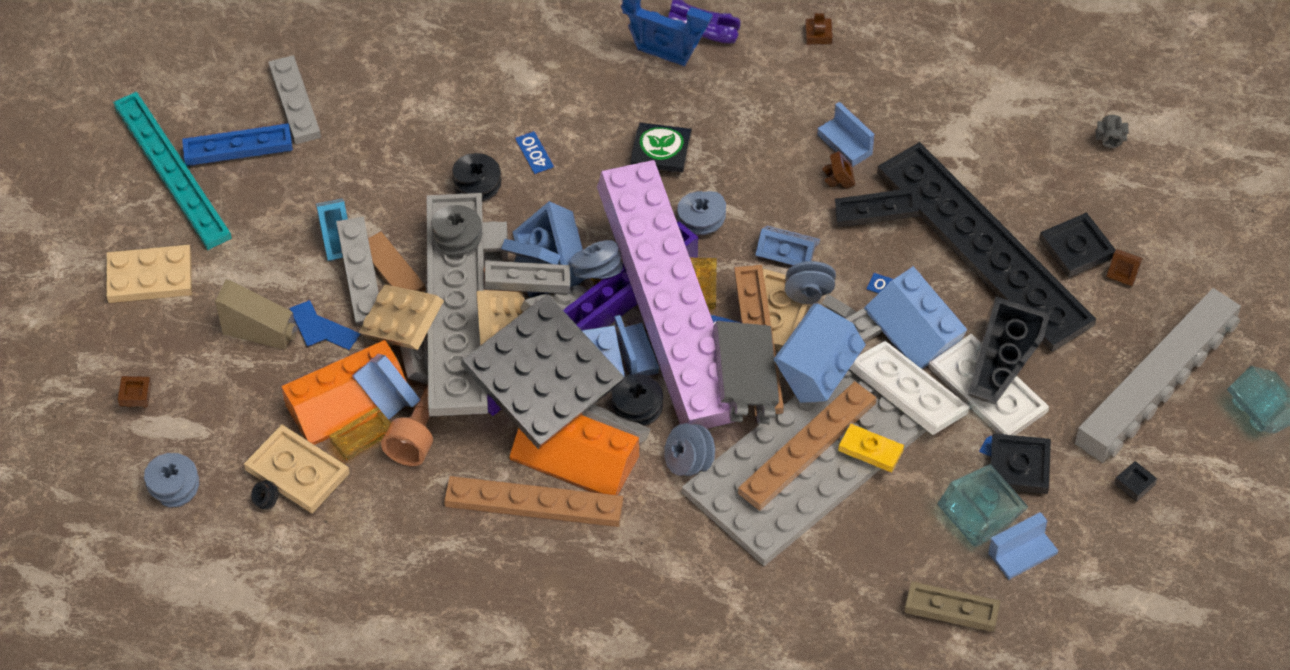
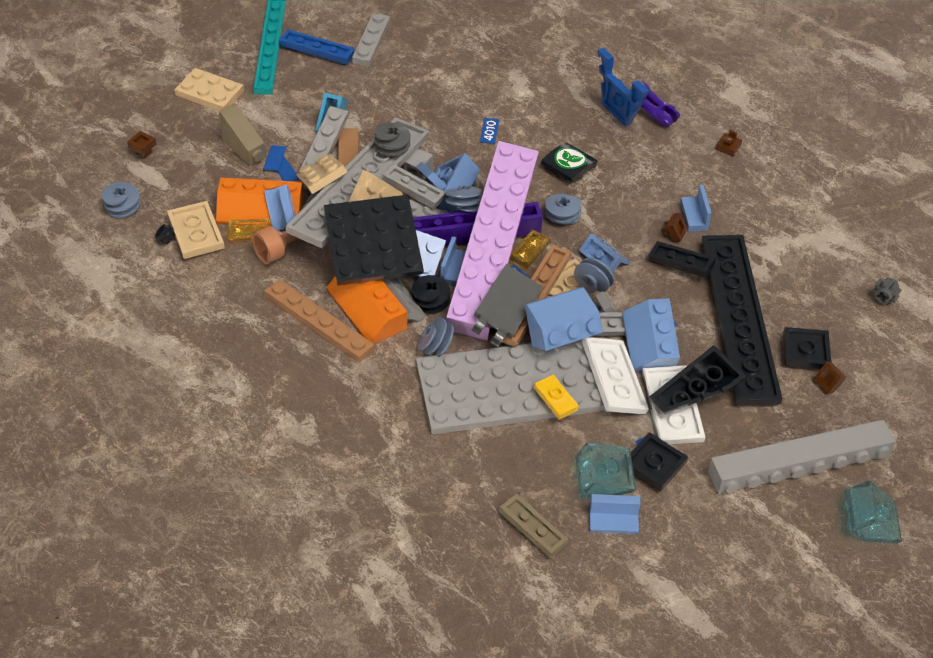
camera: 30 degrees right, 5 degrees down
(477, 175) = (441, 125): black piece -> none
(806, 446) = (514, 373): medium nougat plate -> none
(1135, 481) = (730, 516): black plate -> none

